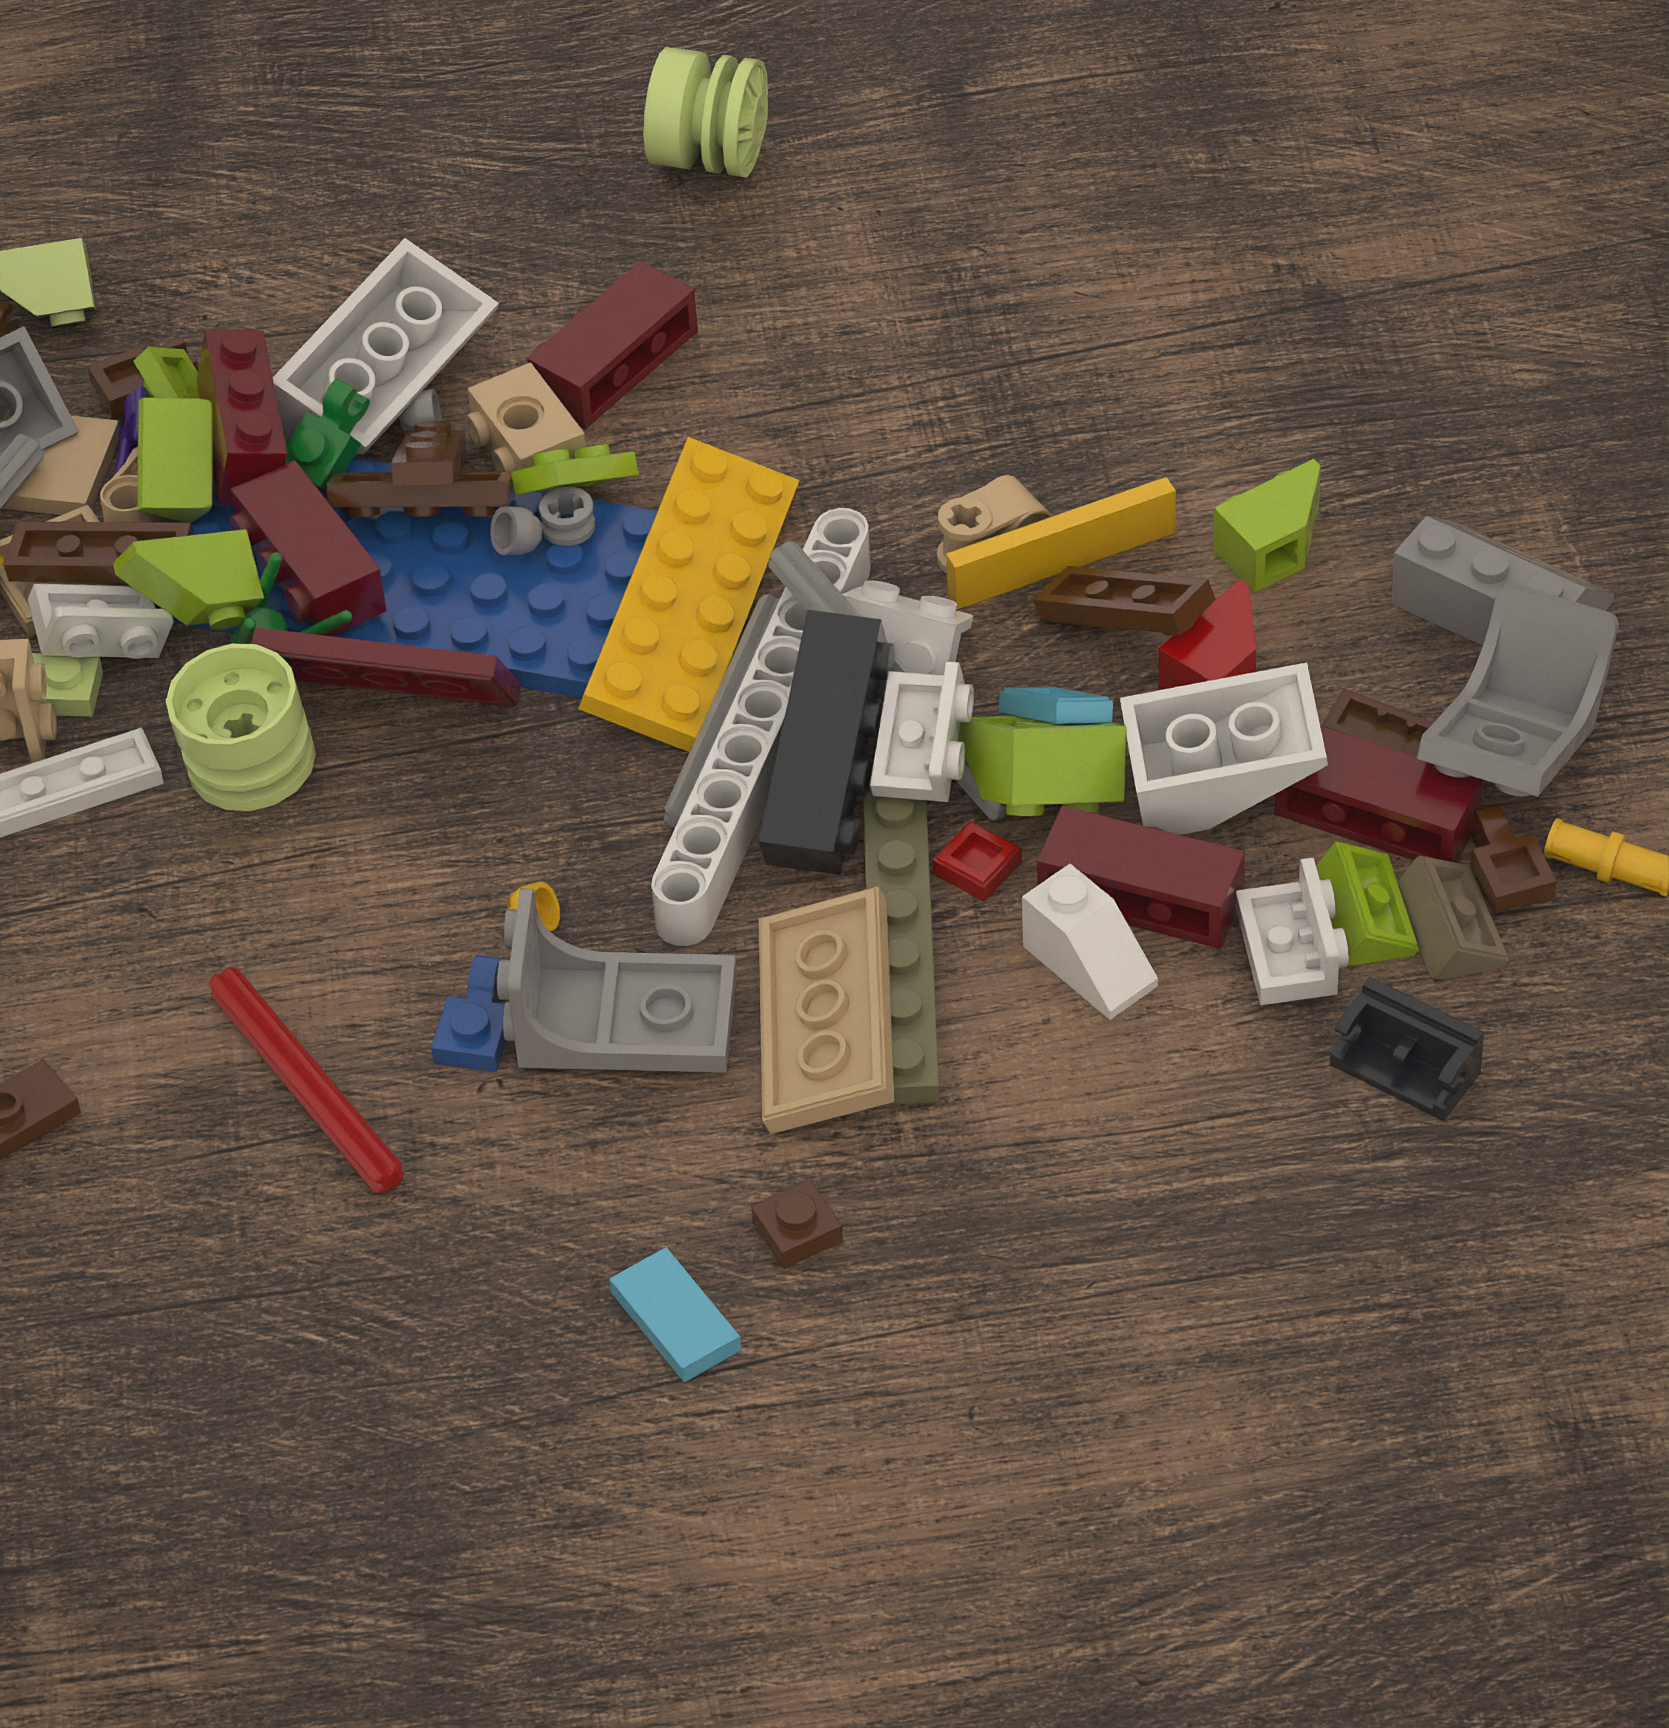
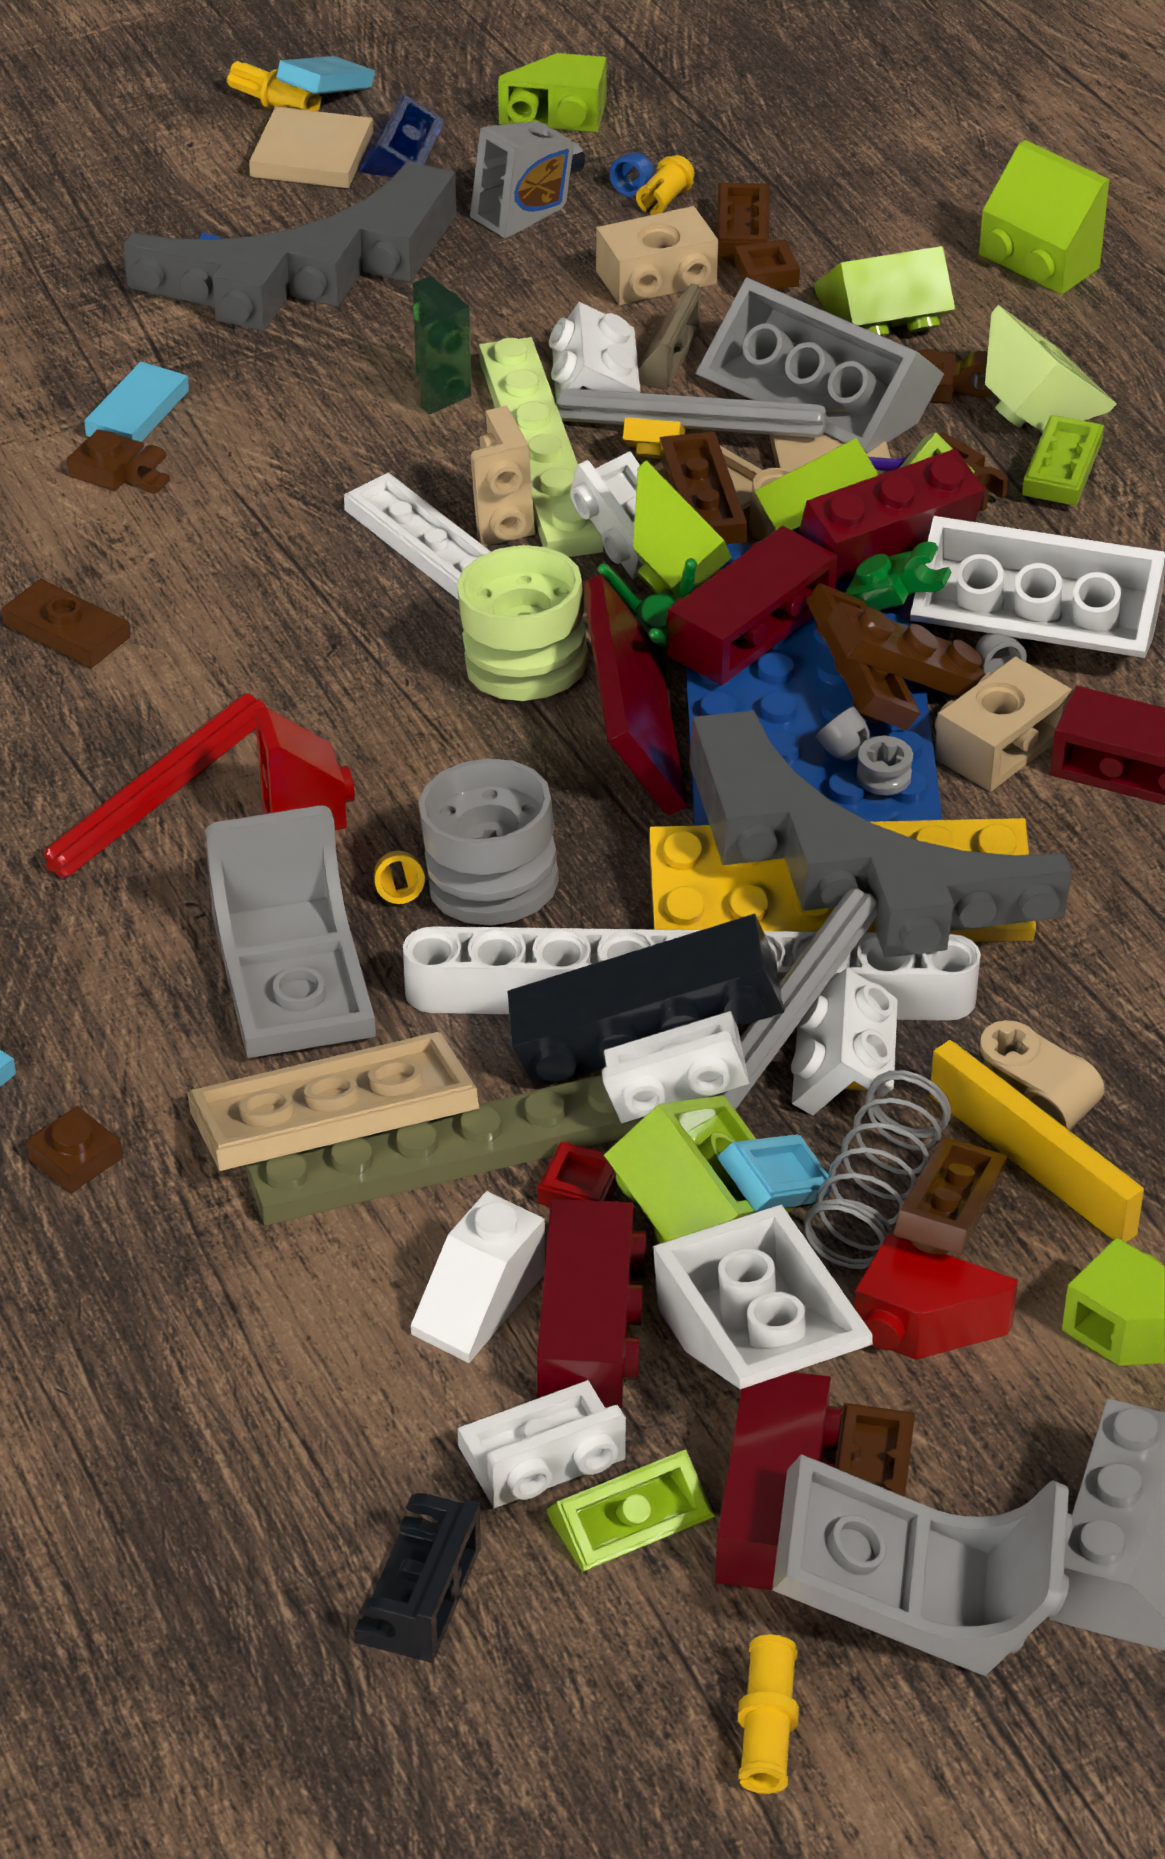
camera: 70 degrees right, 5 degrees down
(164, 298) = (1063, 460): none -> lime plate
(384, 955) = (299, 769): none -> red slope
(551, 812) = (489, 841): none -> light grey wheel
(590, 467) = (925, 737): lime plate -> none
(642, 588) = (920, 888): none -> dark grey arch
(1132, 656) = (860, 1209): none -> light grey piece
(1450, 919) = (638, 1591): dark tan slope -> none
(1508, 866) = (720, 1620): reddish brown plate -> none

